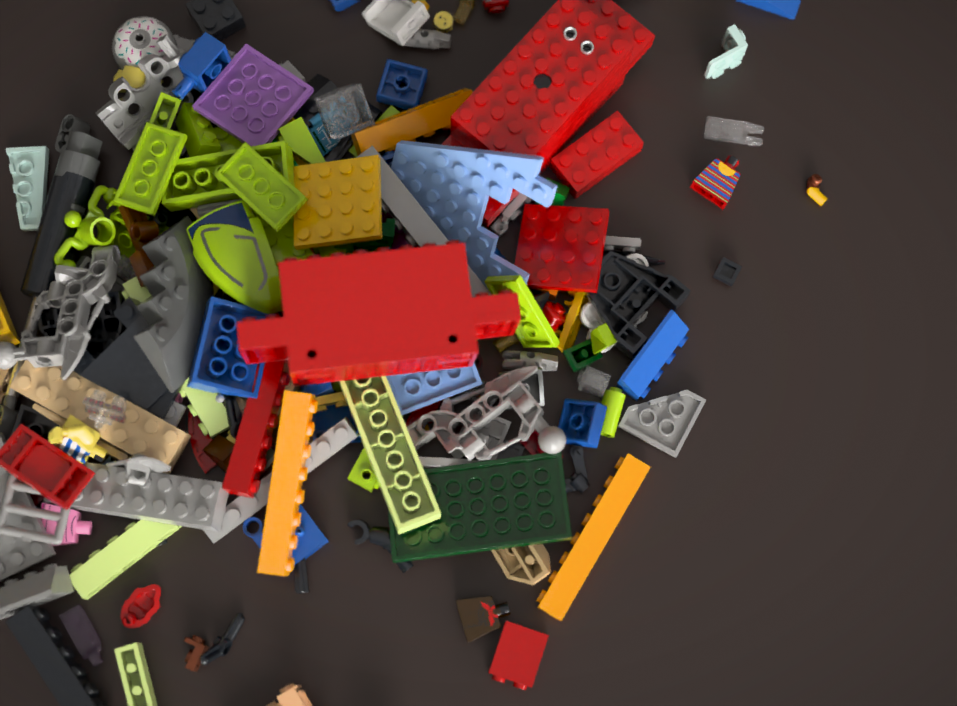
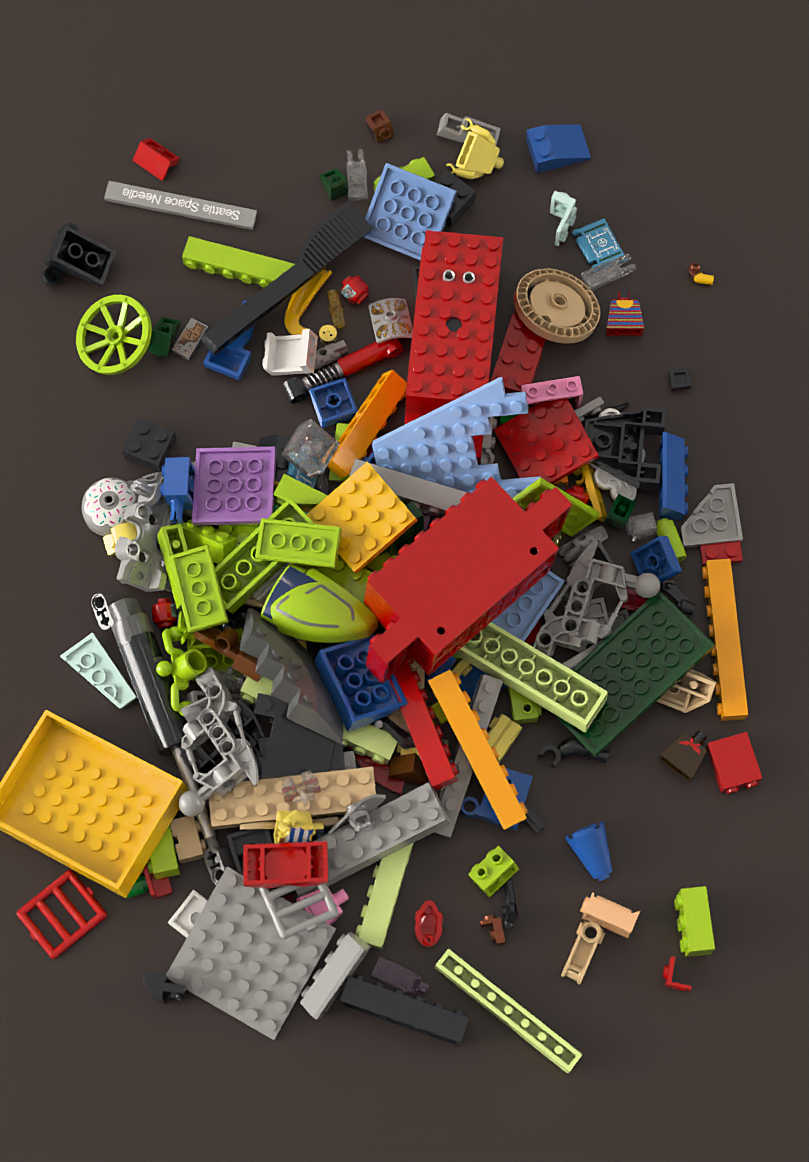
camera: 30 degrees left, 5 degrees down
(116, 169) = (164, 613): none -> red head
(231, 600) = (493, 871): none -> lime brick
(326, 484) = (503, 734): none -> light yellow brick
(332, 642) = (592, 849): none -> blue cone
(439, 60) = (298, 389): none -> piece
(501, 41) = (390, 319): none -> light grey shield
(597, 203) = (554, 390): none -> bright pink window
(601, 338) = (626, 488): lime slope -> none
(649, 454) = (718, 551): none -> red plate
(666, 128) = (557, 306): none -> tan piece
(744, 99) = (598, 243): none -> dark azure piece

